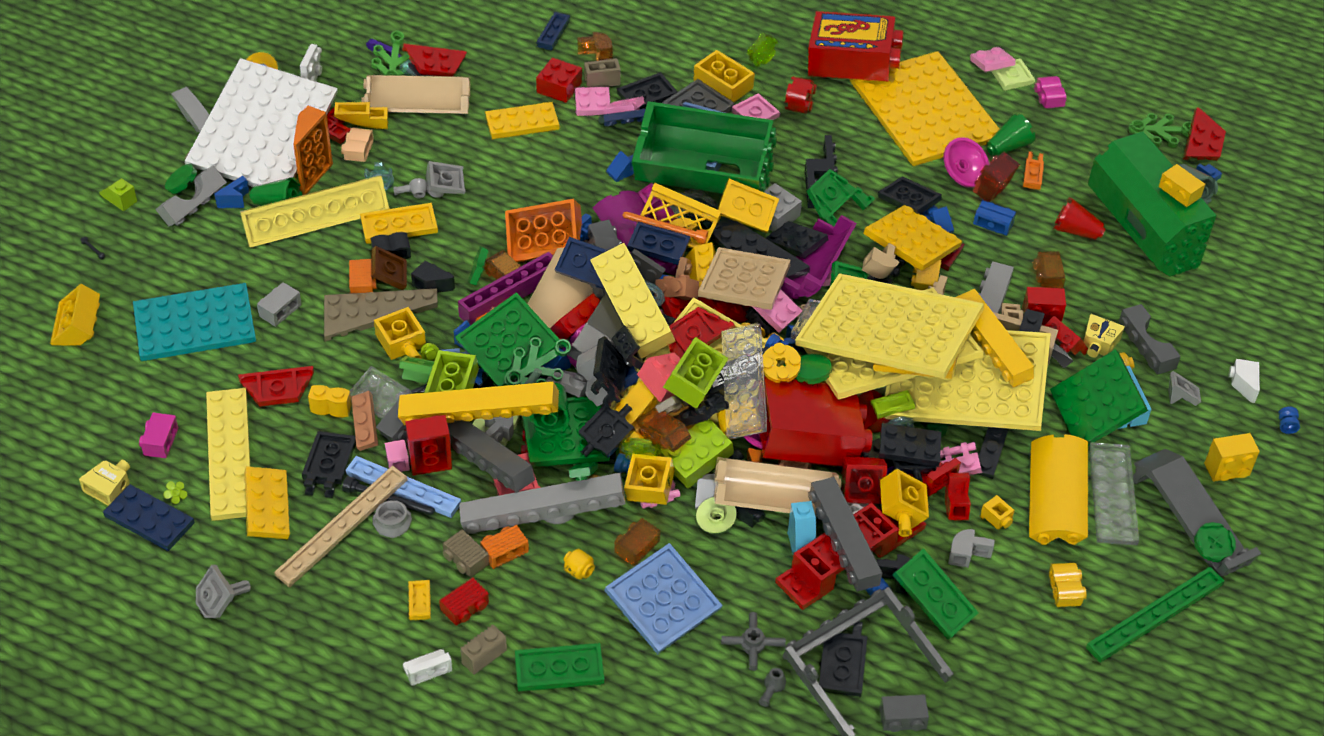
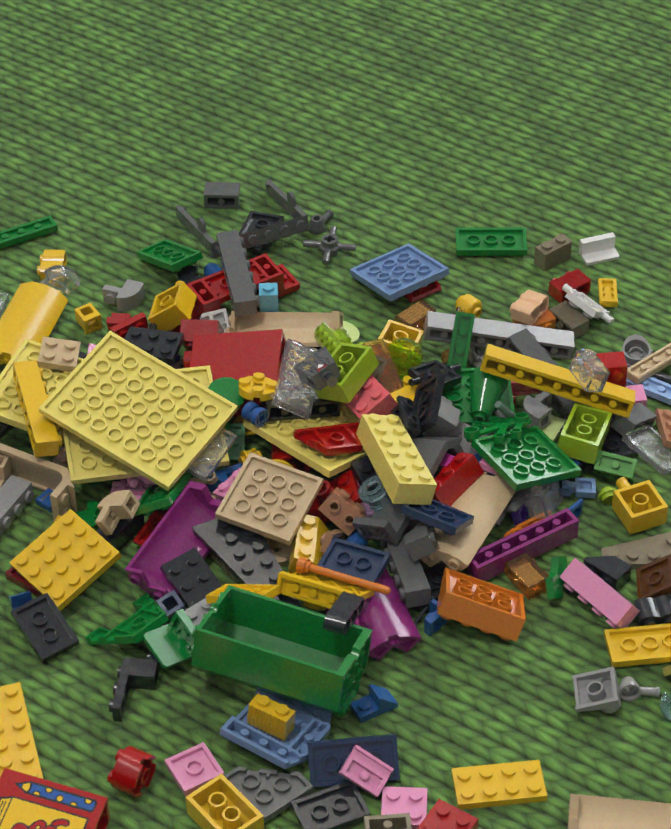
camera: 170 degrees left, 5 degrees down
(441, 249) = (598, 593): none -> bright pink brick
(443, 563) = (590, 307): none -> white plate
(446, 396) = (589, 370): none -> clear brick
(509, 536) = (529, 307): none -> light nougat brick
(656, 159) = (343, 613): none -> black beam
(714, 437) = (330, 338): none -> lime bracket
(719, 350) = (318, 370): none -> dark grey torso
(797, 179) = (172, 641): none -> green bracket
(808, 213) = (170, 604): none -> dark blue brick
(998, 411) = (59, 354): none -> tan plate
(1046, 553) = (61, 278): none -> clear brick

